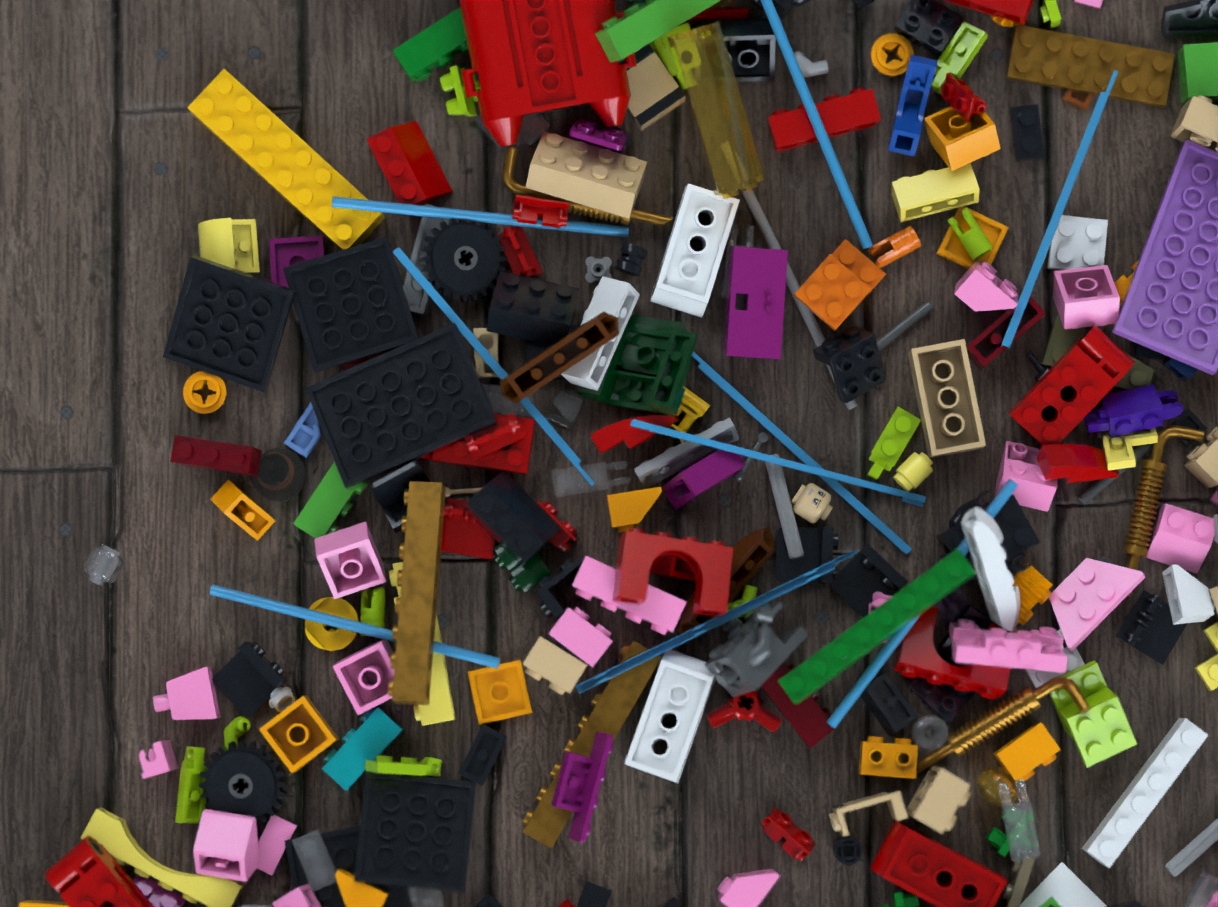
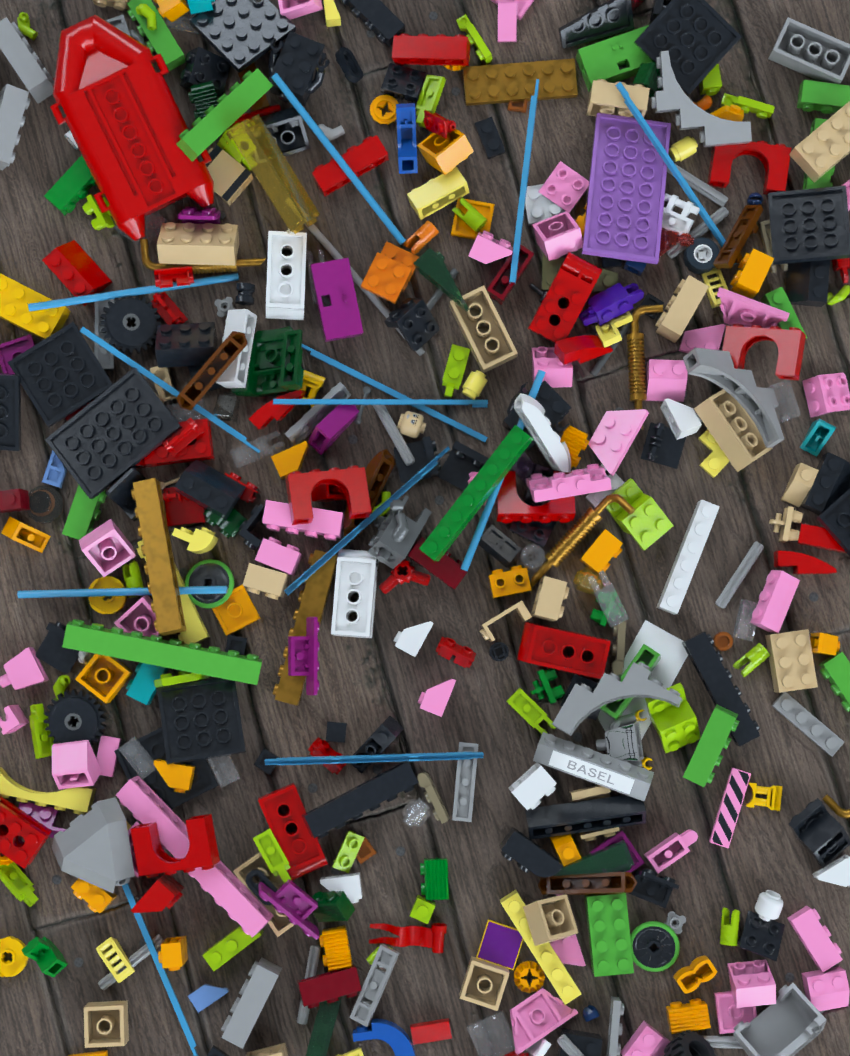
camera: 20 degrees left, 0 degrees up
(389, 726) = (162, 652): none -> bright green brick
(477, 628) = (212, 571): none -> black wheel
(479, 587) = (199, 541): none -> light yellow brick
(734, 798) = (412, 638): none -> white slope
(901, 296) = (433, 268): none -> clear green slope
(1112, 230) = (564, 187): none -> bright pink hinge

